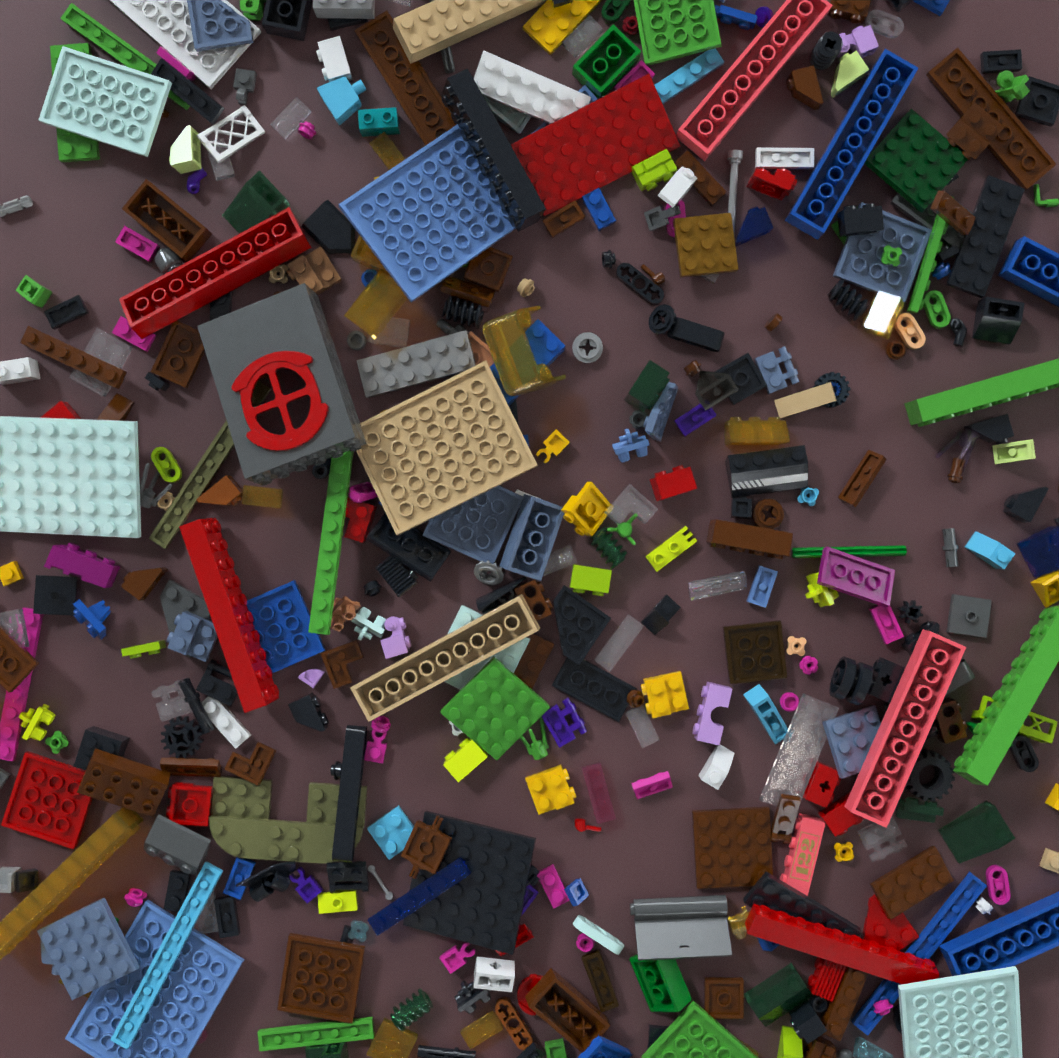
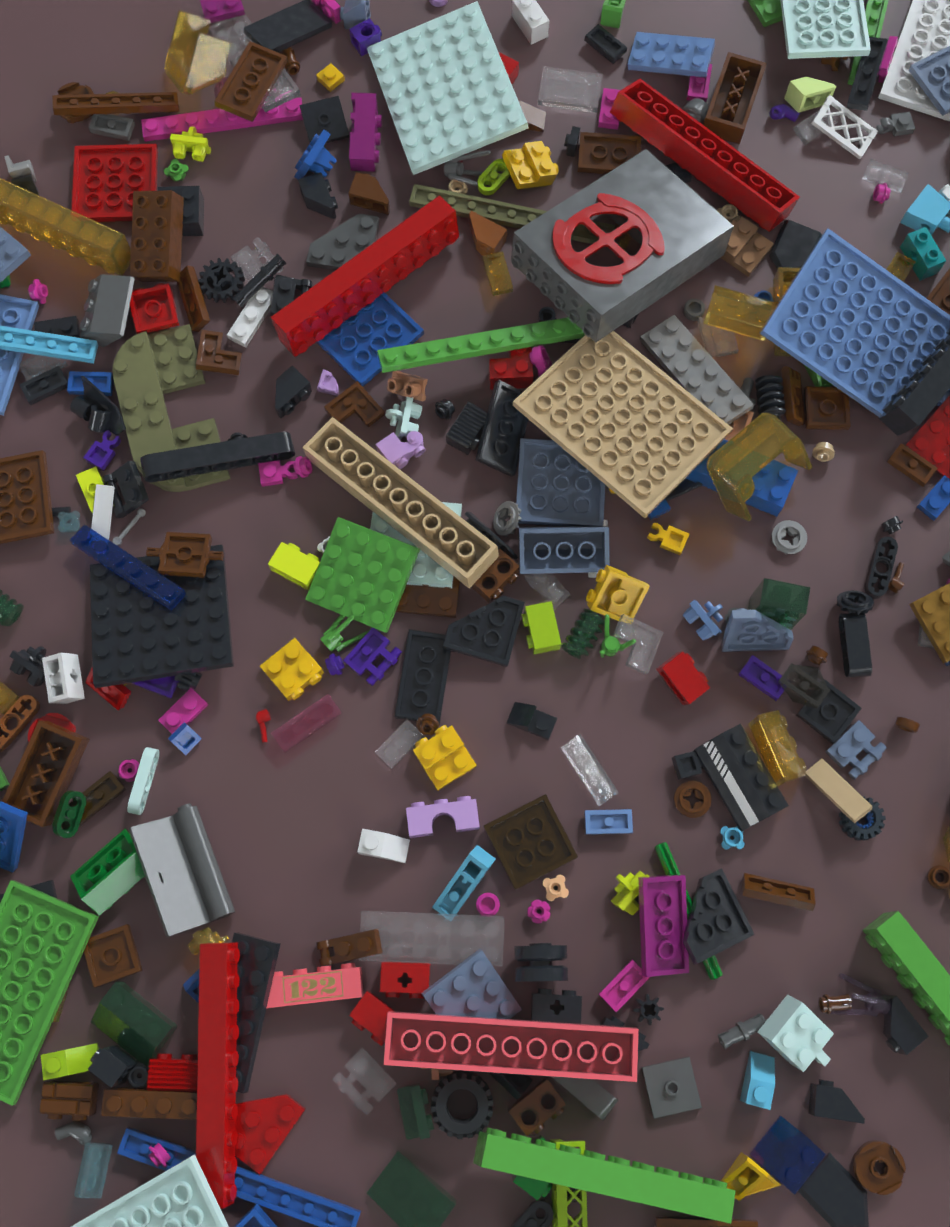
camera: 70 degrees right, 15 degrees down
(73, 357) = (565, 62): reddish brown plate -> none
(100, 258) = (671, 54): none -> medium blue plate
(128, 627) = (317, 196): none -> black slope
(151, 648) = (303, 221): lime plate -> none
(168, 429) = (530, 165): none -> yellow plate
(192, 636) = (329, 251): sand blue plate -> none
(255, 203) = (790, 166): clear green slope -> none
(360, 901) = (103, 509): none -> white sticker
(392, 831) = (189, 517): medium azure plate -> none
(455, 957) = (69, 633): dark pink plate -> none
(559, 755) = (334, 664): none -> dark purple plate
(606, 1000) = (70, 814): none -> dark green plate
(619, 643) = (483, 684): clear plate -> none
(652, 785) = (335, 779): dark pink plate -> none
(670, 549) = (609, 705): neon yellow hinge -> none
(731, 846) = (295, 899): reddish brown plate -> none
(748, 537) = (658, 782): reddish brown brick -> none
(848, 855) = (326, 1035): yellow plate -> none
(865, 535) = (714, 919): none -> black plate
(911, 882) = (324, 1137): reddish brown plate -> none
(969, 510) = (797, 1034): none -> light aqua hinge
(1014, 451) = (887, 1064): yellowish green slope -> none

